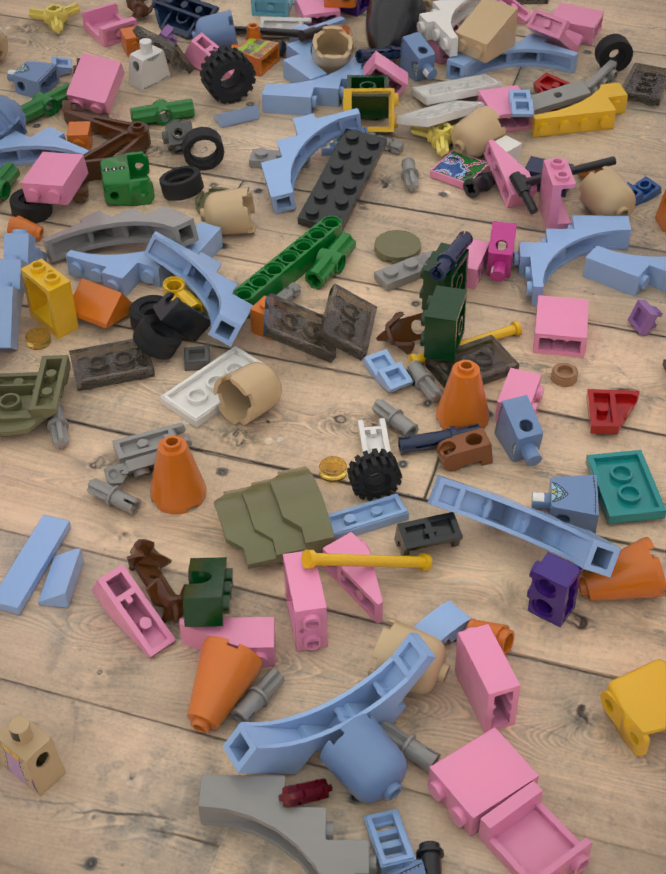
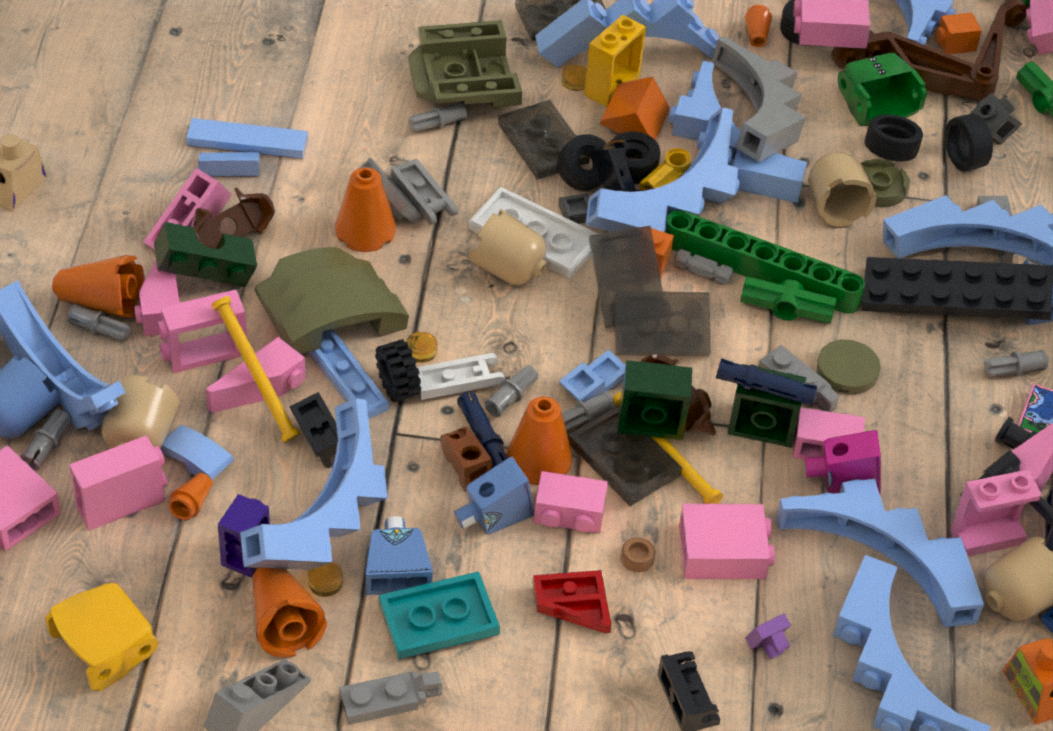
camera: 75 degrees right, 5 degrees up
(113, 496) = (340, 178): light grey axle -> none

